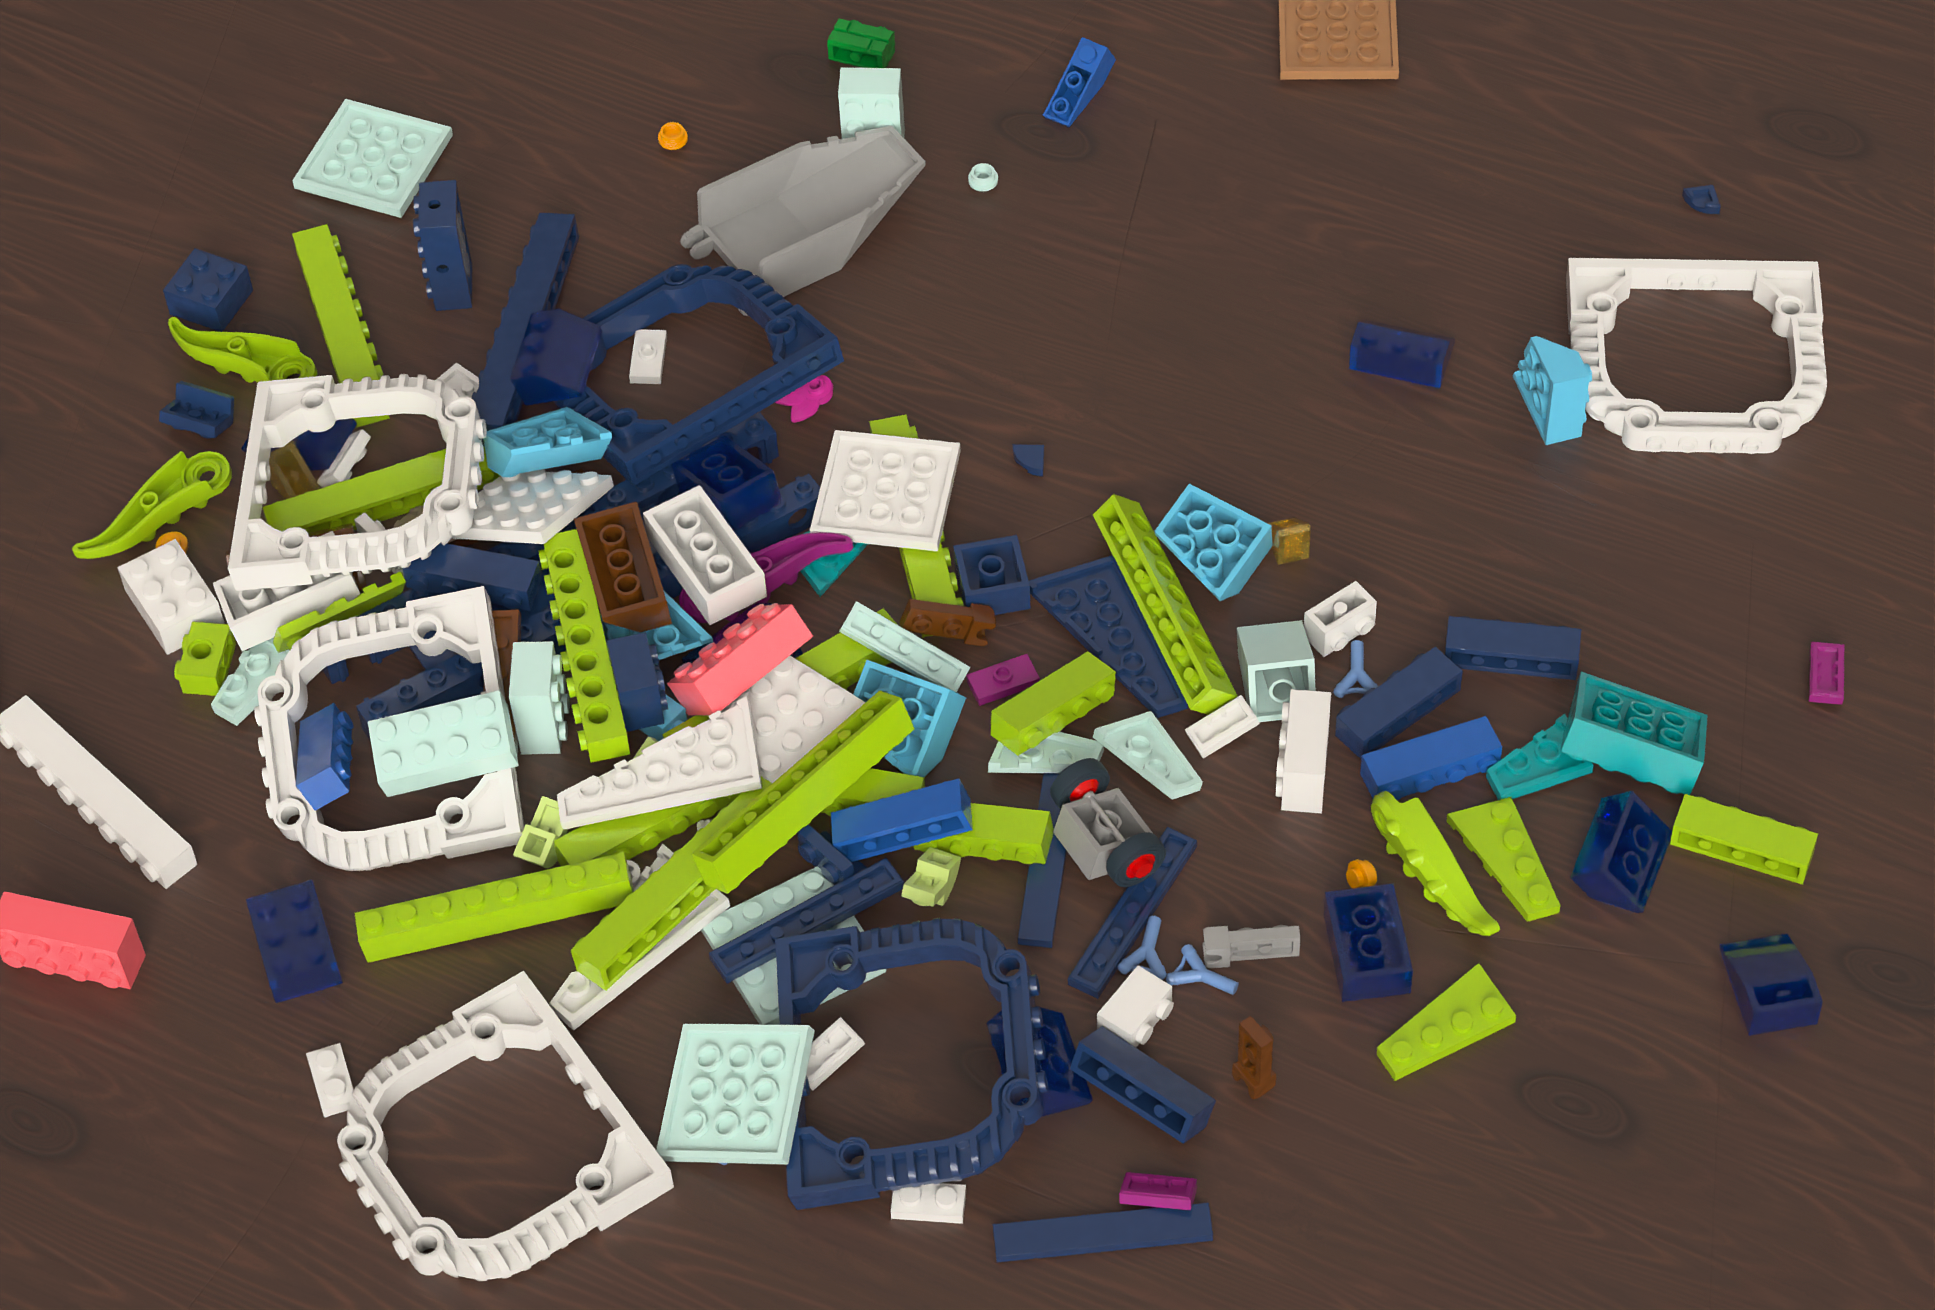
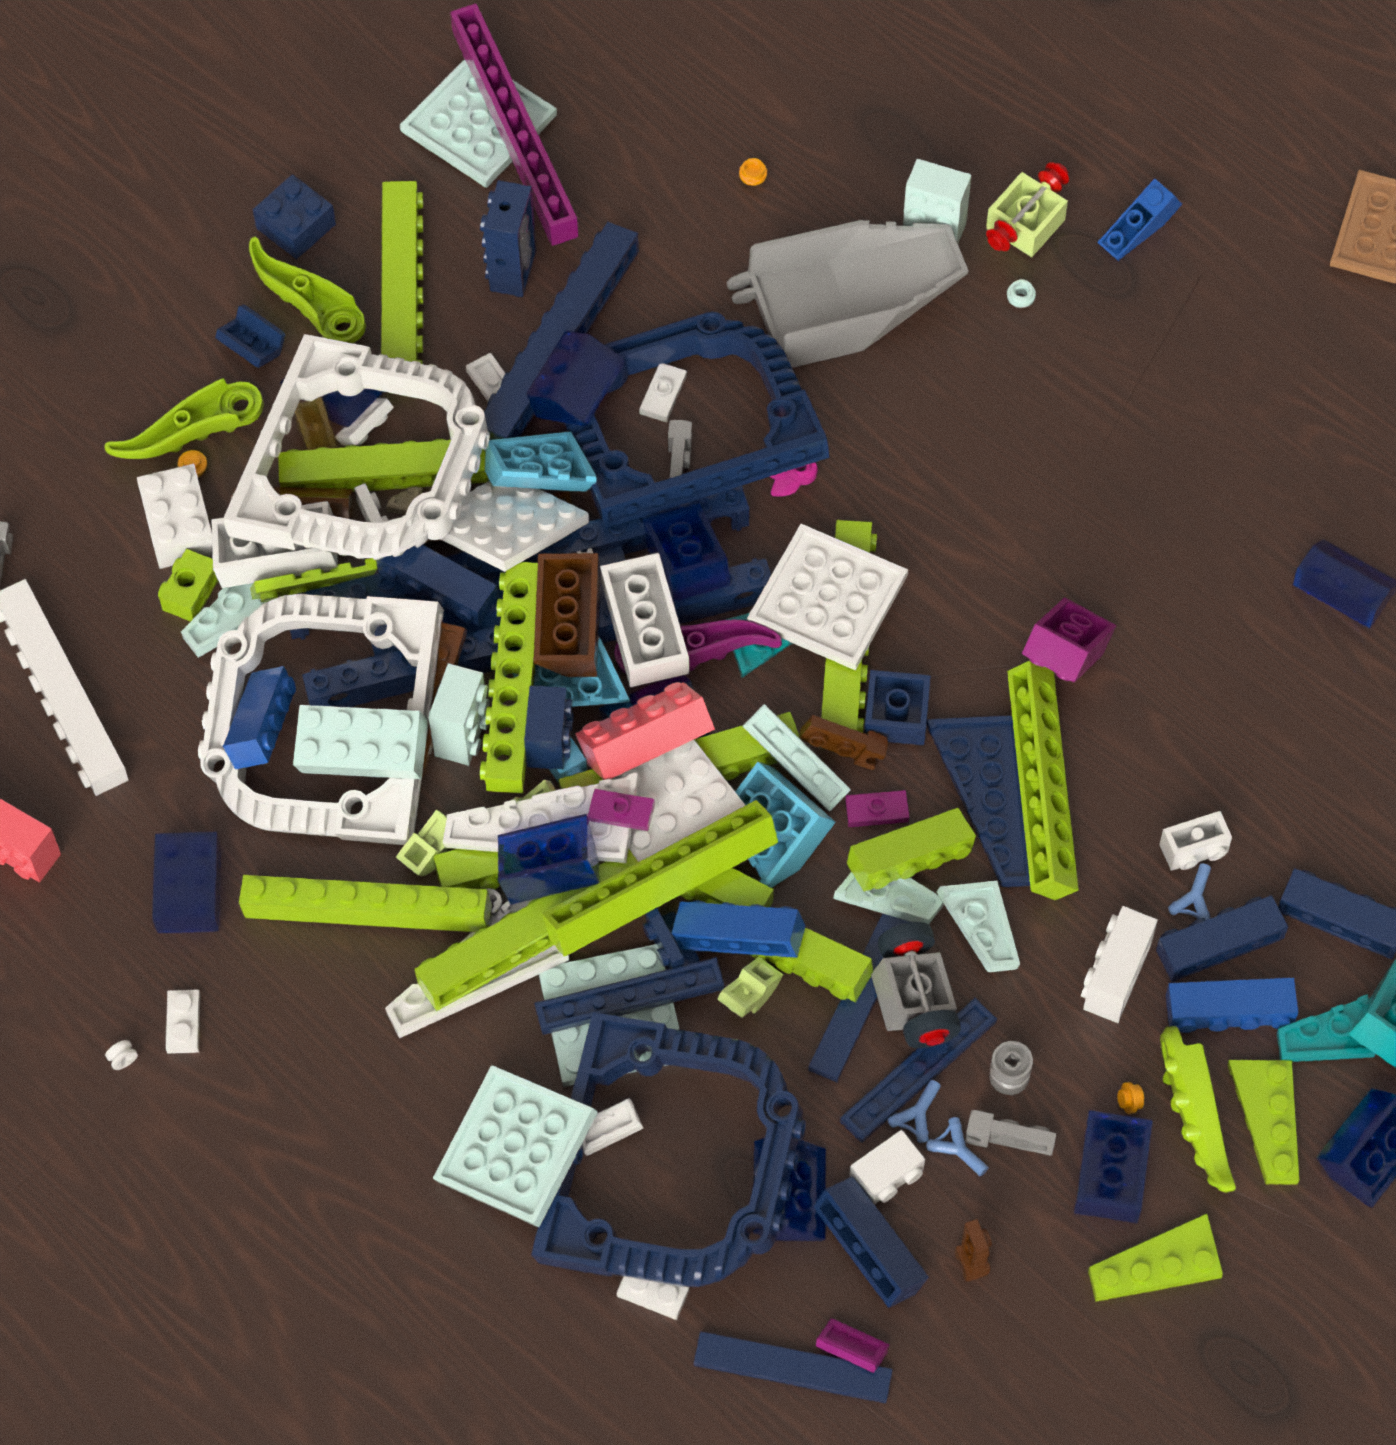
camera: 15 degrees right, 10 degrees up
(275, 1129) = (121, 1055): none -> white bush
(411, 143) = (514, 124): none -> magenta brick
(516, 1018) = (404, 1184): white arch -> none
(679, 803) = (547, 859): none -> clear blue slope
(681, 393) = (680, 445): none -> light grey plate
(742, 734) = (621, 809): none -> magenta plate
(861, 44) = (953, 124): green brick -> none
(966, 99) = (1028, 211): none -> yellowish green brick
(1030, 457) = (972, 593): dark blue tile -> none
(1145, 467) = (1068, 640): none -> magenta brick
(1215, 540) = (1107, 731): medium azure wedge -> none
(1222, 726) = (1055, 914): white plate -> none
(1228, 879) = (1011, 1067): none -> light grey wheel
(1272, 663) = (1121, 871): light aqua slope -> none
(1290, 540) = (1177, 743): clear yellow slope -> none

